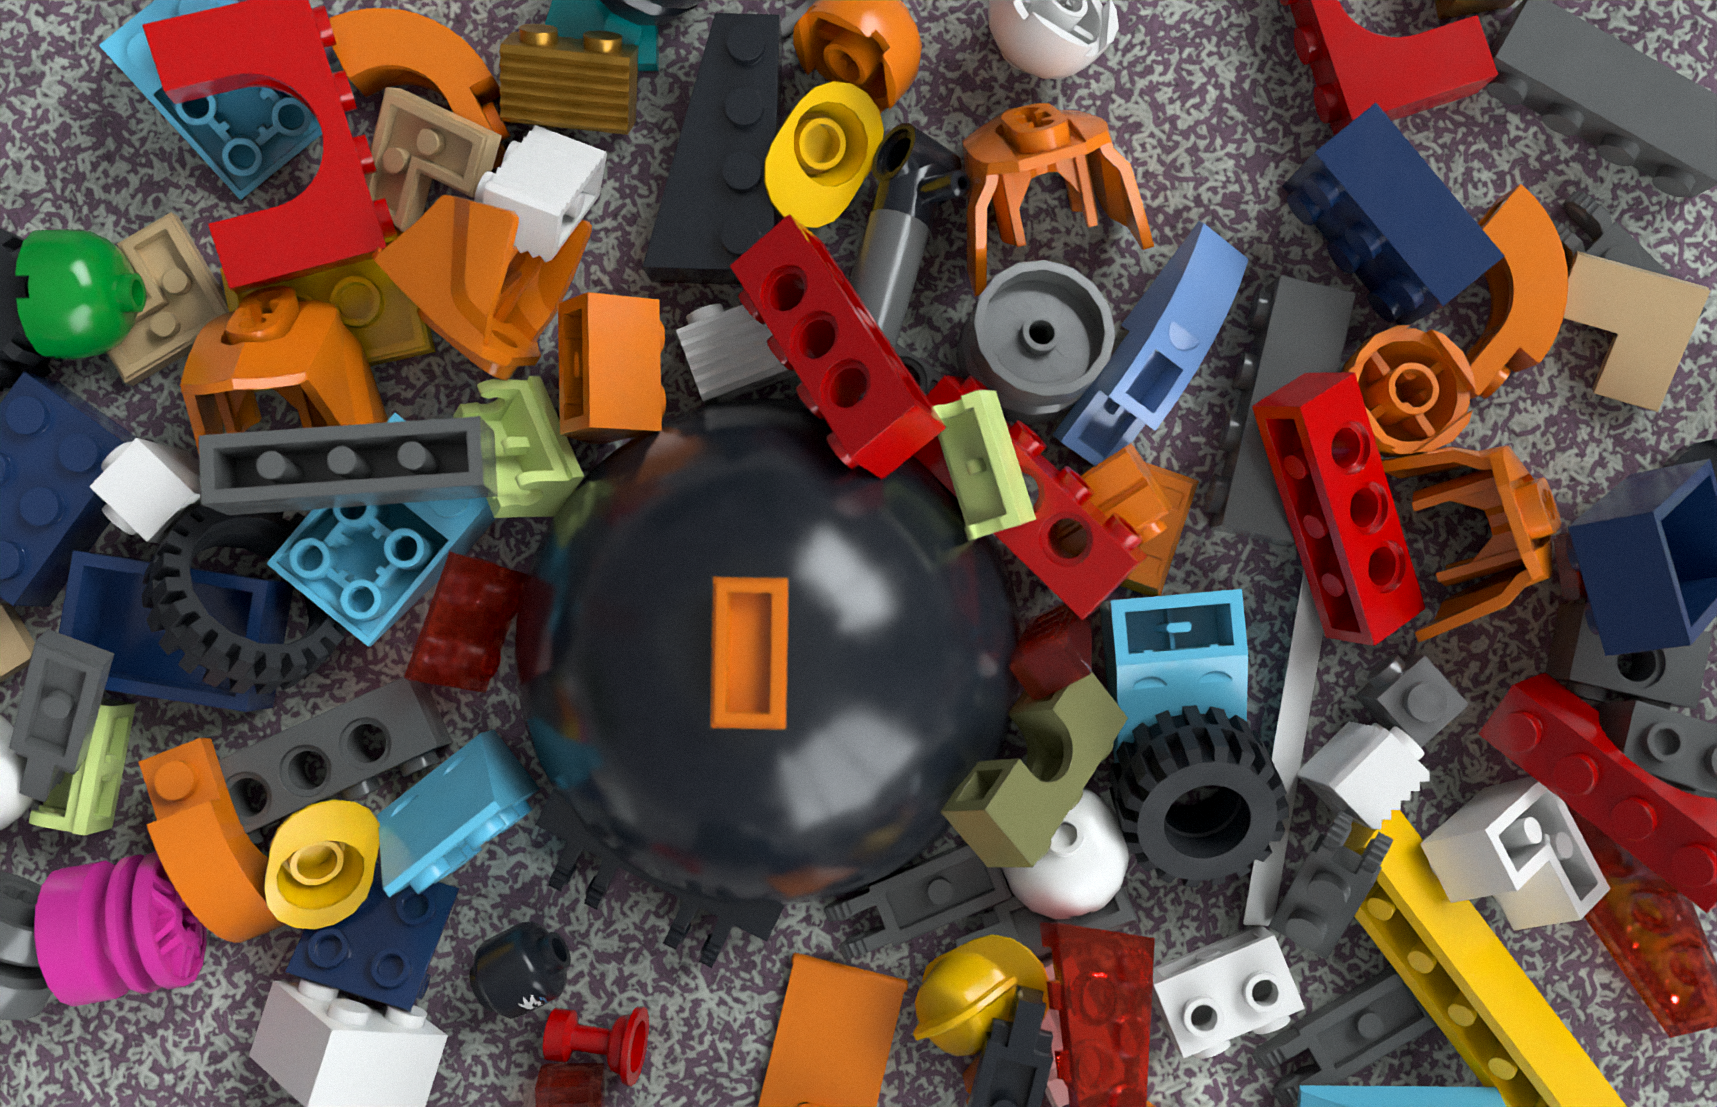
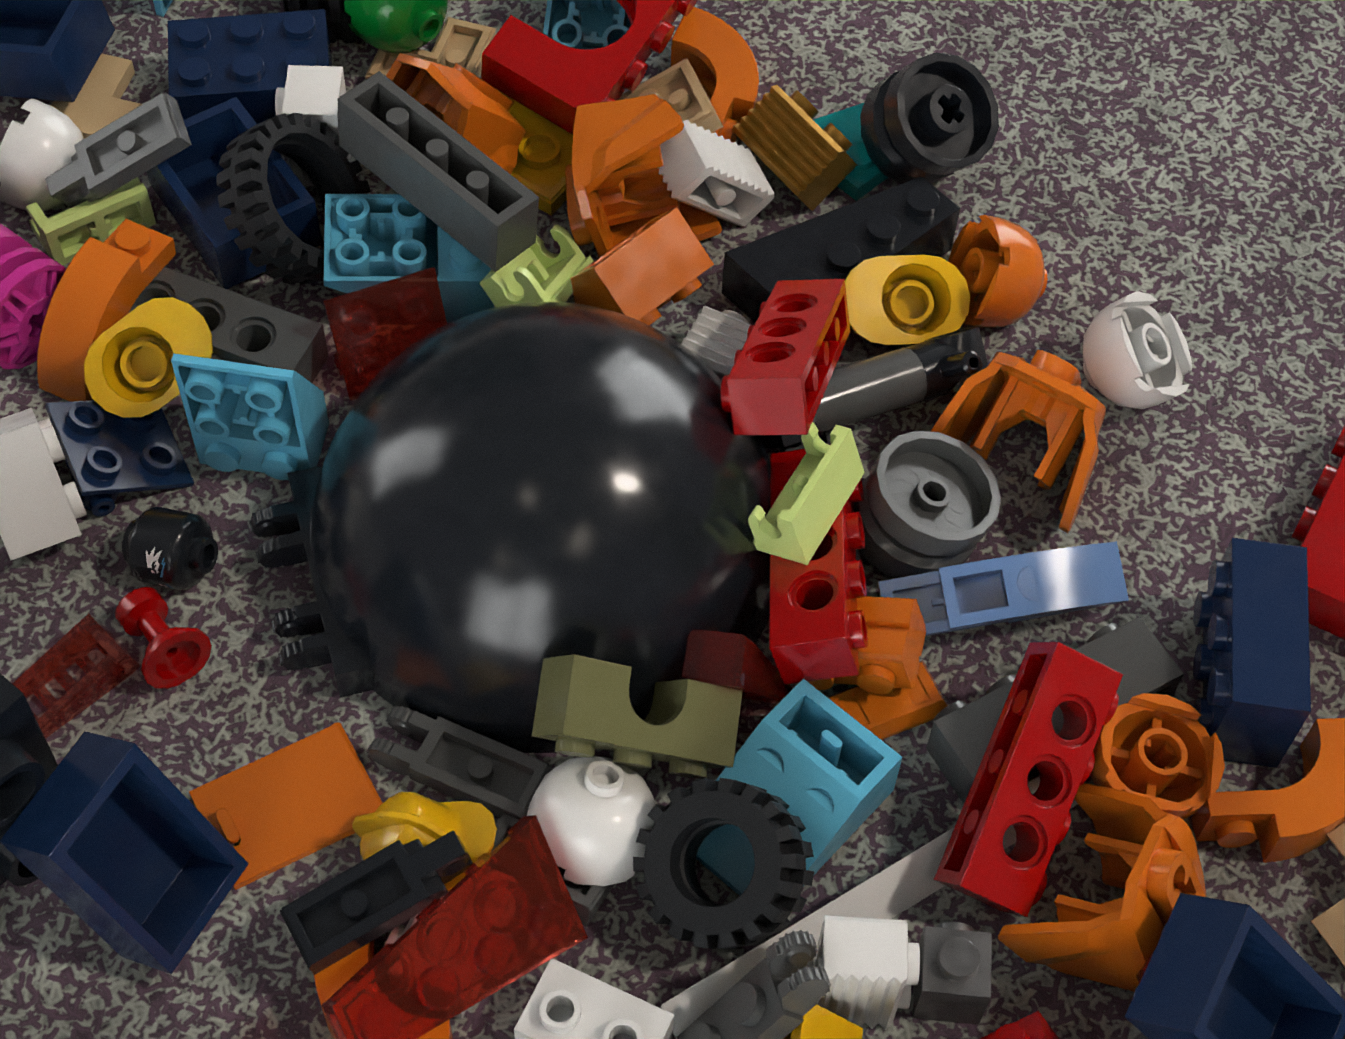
camera: 45 degrees right, 30 degrees down
(749, 653) = (542, 385): orange tile -> none

